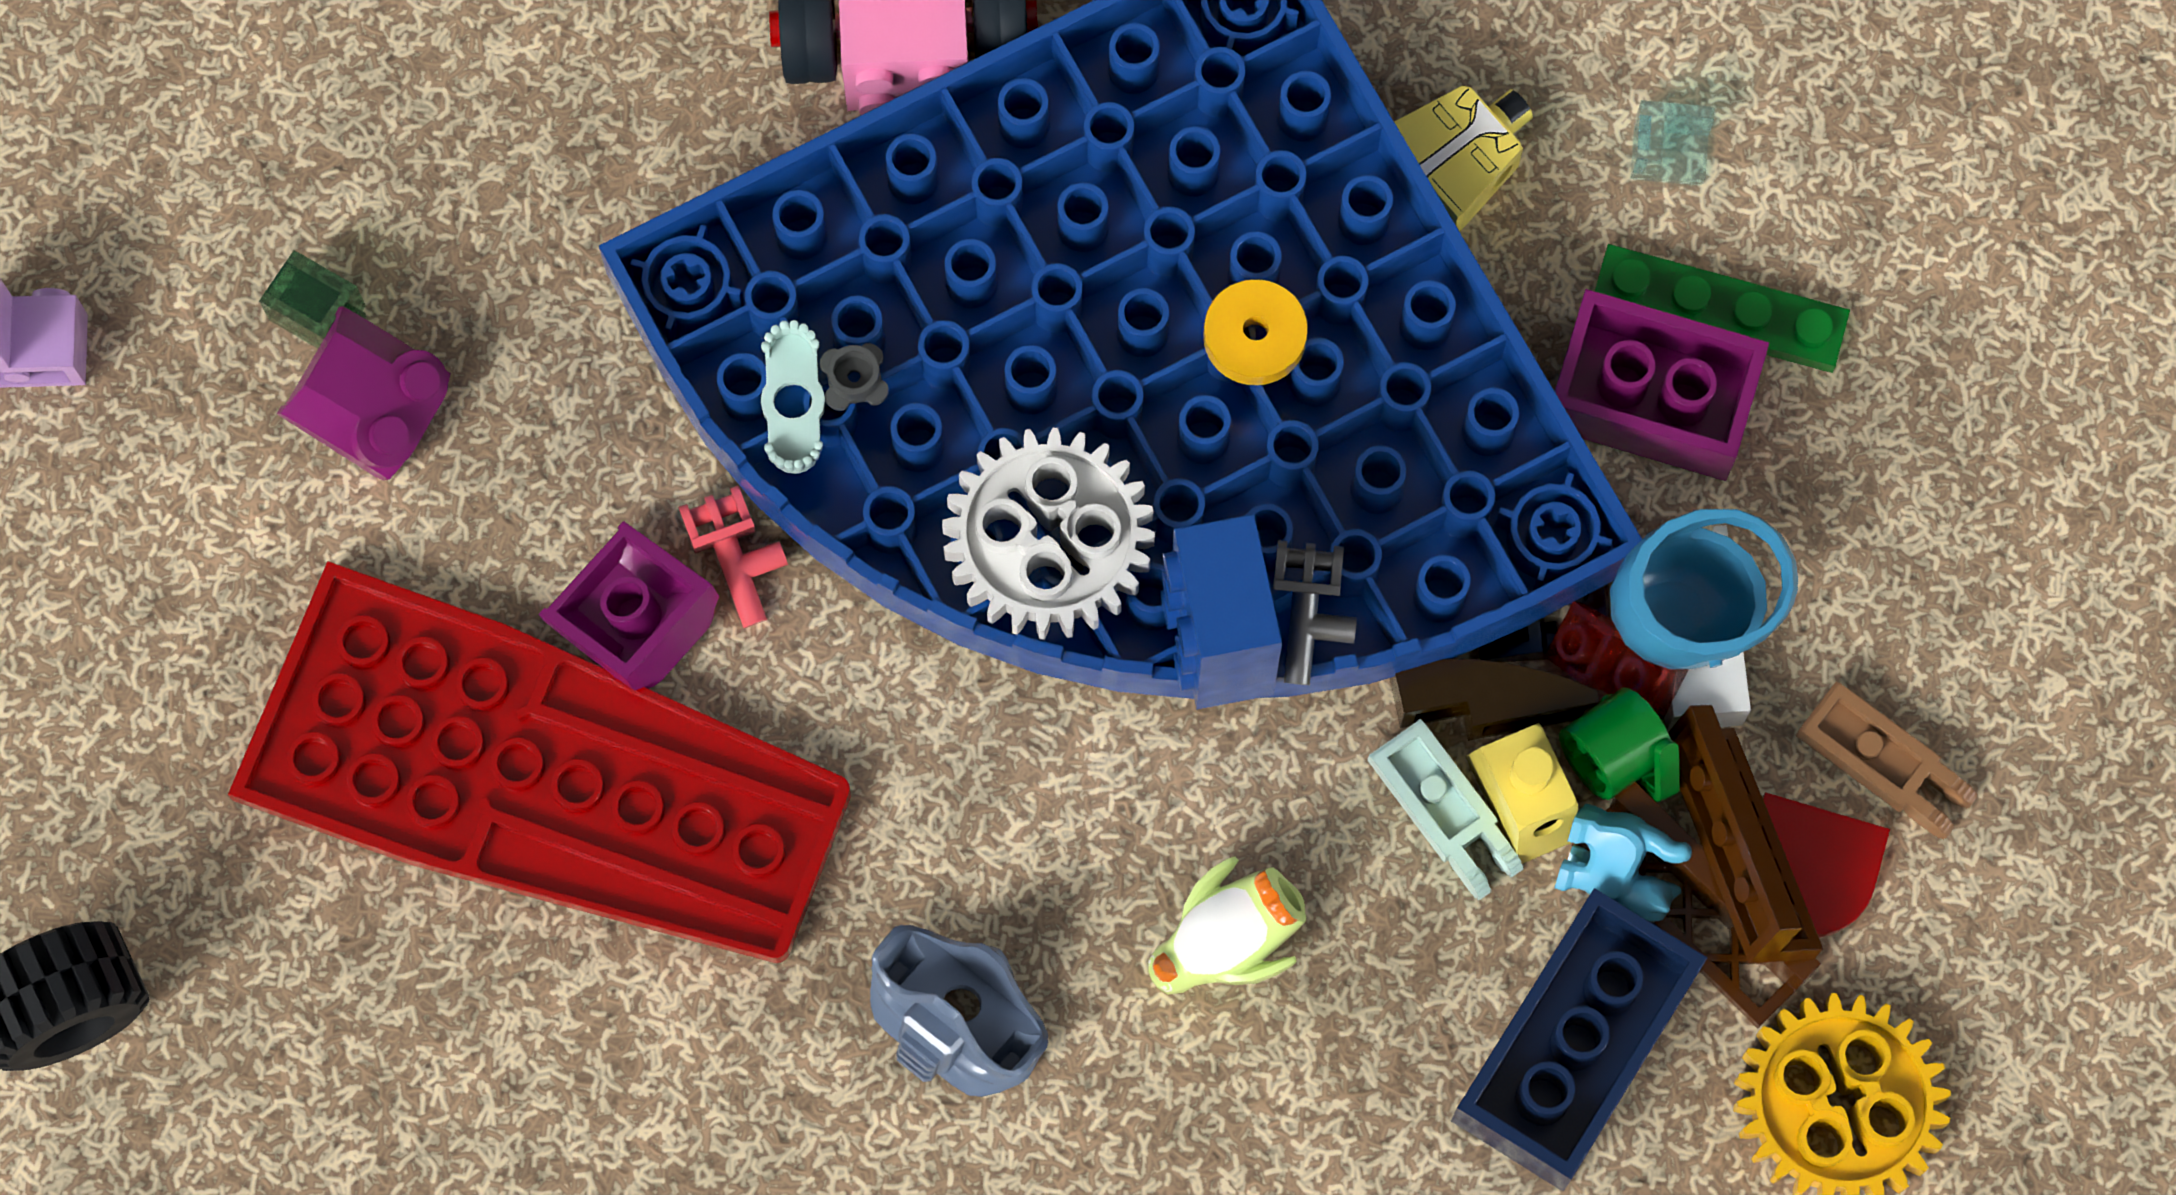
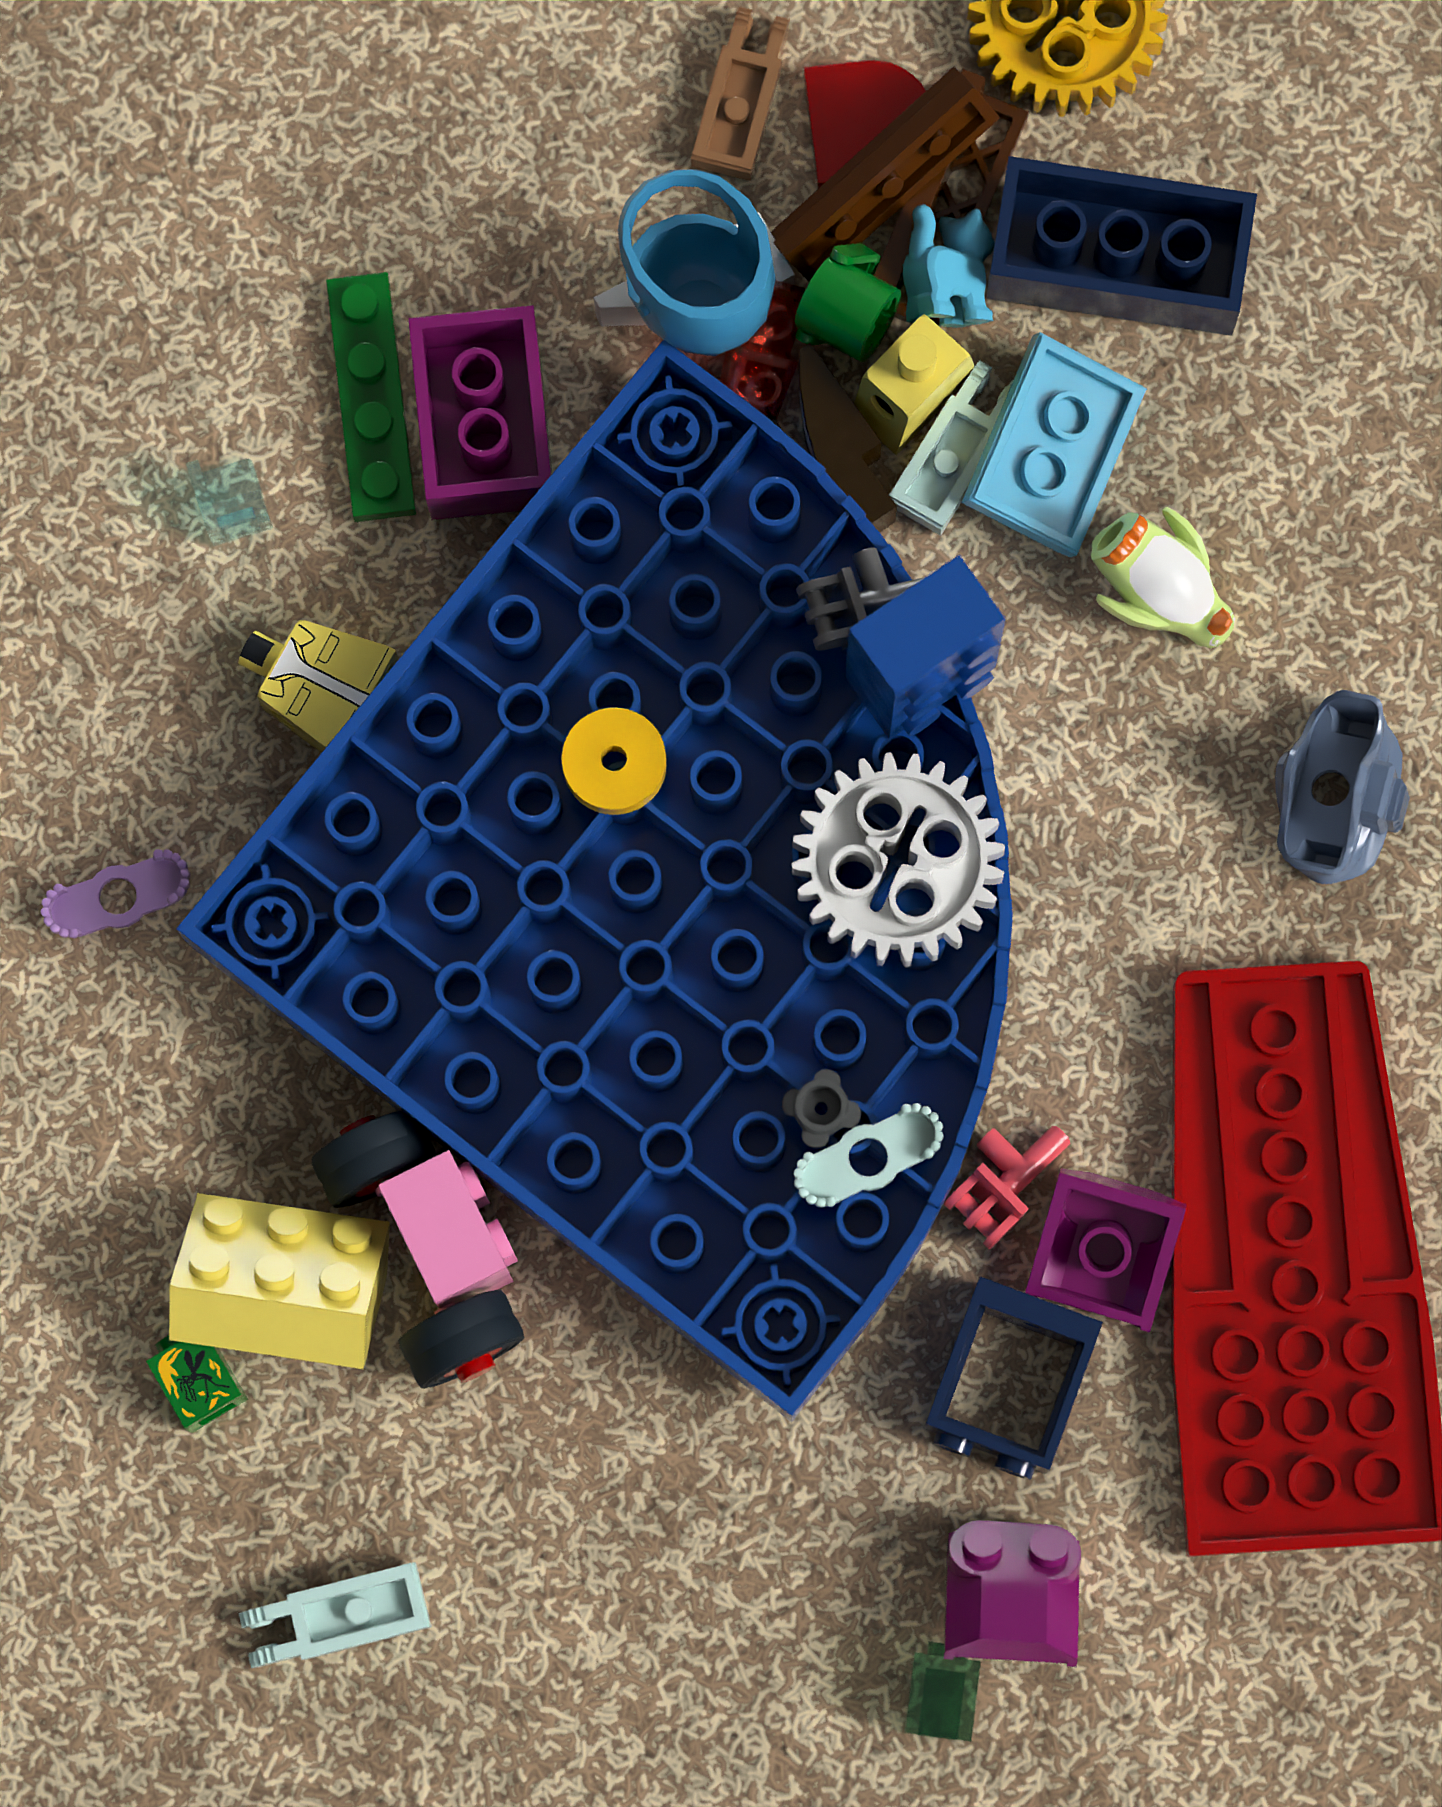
camera: 110 degrees left, 5 degrees up
(598, 523) = (1038, 1317): none -> dark blue window
(1408, 897) = (1054, 445): none -> medium azure tile

